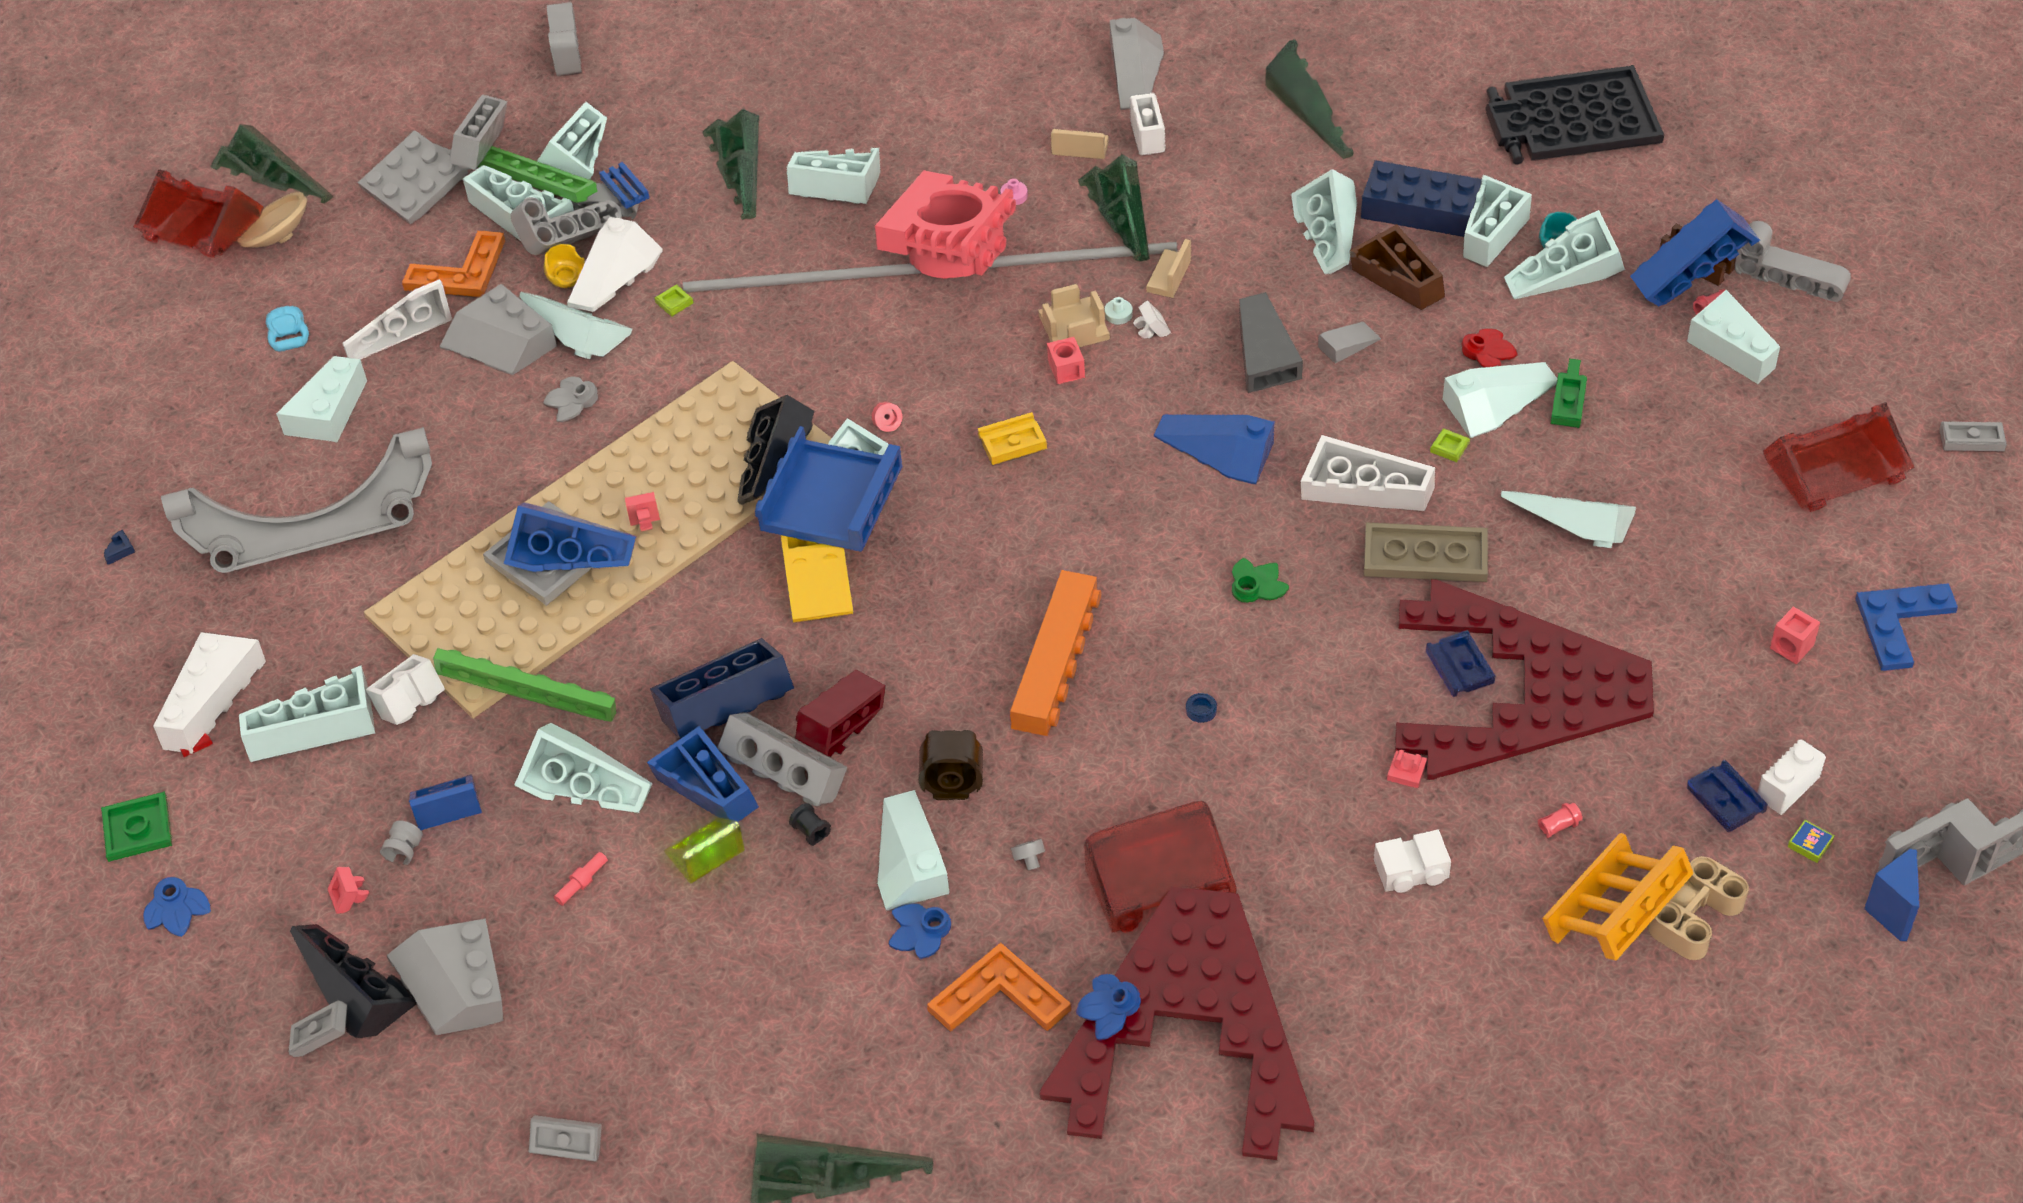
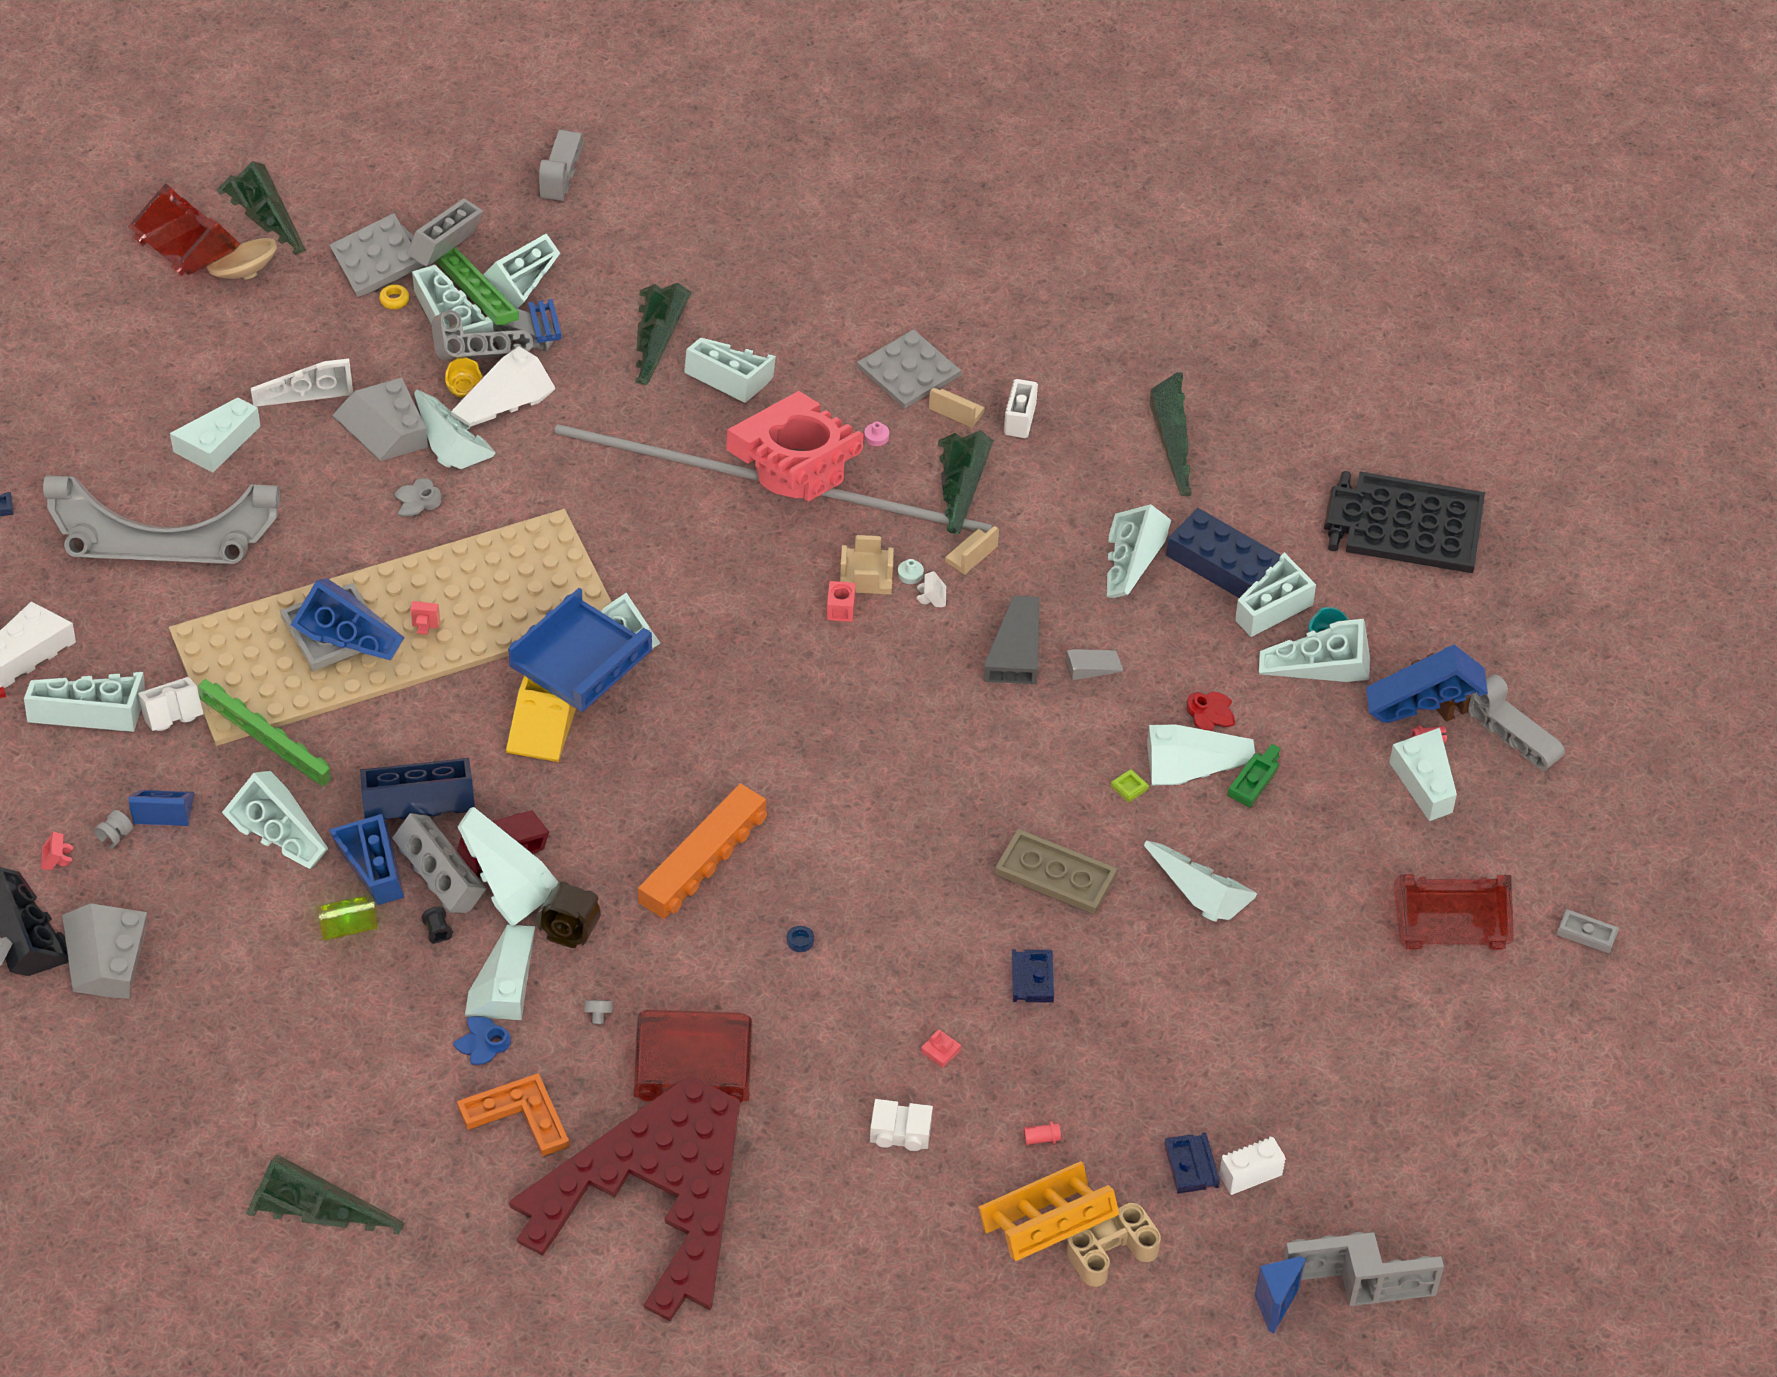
camera: 15 degrees right, 0 degrees up
(285, 322) = (214, 353): medium azure piece -> none
(452, 218) = (394, 303): none -> yellow piece
(464, 281) = (381, 364): orange plate -> none
(565, 1138) = (132, 1106): light grey plate -> none
(580, 878) = (239, 906): coral bar -> none
(674, 300) = (542, 438): lime tile -> none
(769, 439) = (561, 580): black wedge -> none
(874, 739) = (514, 874): none -> light aqua wedge
(886, 416) = (669, 606): coral tile -> none
(1012, 438) = (762, 655): yellow plate -> none
(1013, 123) = (908, 368): none -> light grey plate
(1105, 1004) = (592, 1151): blue plate -> none
(1135, 57) = (1045, 342): light grey wedge -> none
(1226, 442) = (936, 718): blue wedge -> none
(1260, 579) = (906, 848): green plate -> none
(1365, 477) = (1036, 789): white wedge -> none
(1399, 268) = (1168, 612): reddish brown wedge -> none
(1569, 684) = (1115, 1029): dark red wing -> none
(1794, 635) = (1323, 1049): coral brick -> none
(1811, 841) = (1241, 1224): tile -> none
(1885, 607) = (1420, 1051): blue plate -> none

